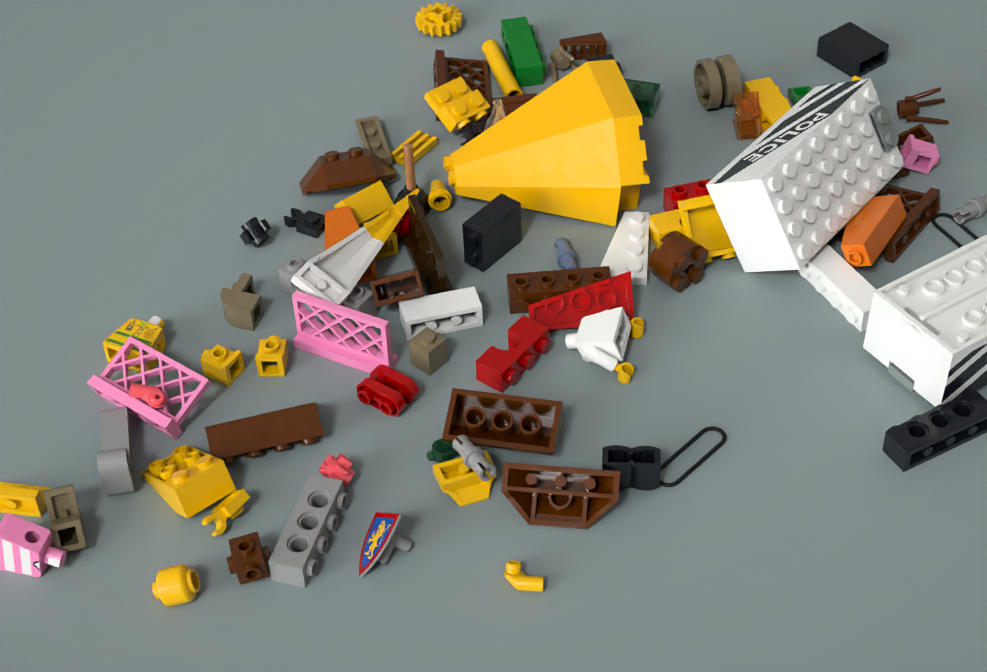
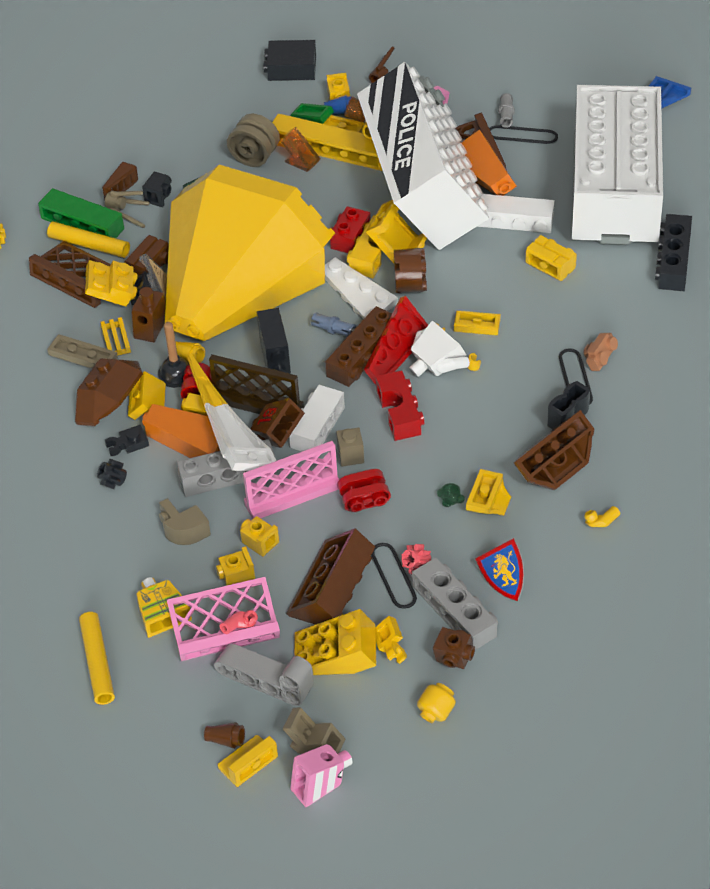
camera: 50 degrees left, 5 degrees up
(31, 467) = (226, 734): none -> reddish brown cone
(53, 341) = (96, 658): none -> yellow piece
(282, 500) = (403, 572): none -> black piece
(445, 141) = (148, 314): none -> reddish brown torso
(474, 457) = (487, 476): light grey pin -> none
(504, 421) = (465, 445): reddish brown slope -> none
(675, 348) = (482, 322): none -> yellow tile
(739, 451) = (600, 350): none -> nougat piece
(819, 346) = (551, 257): none -> yellow brick

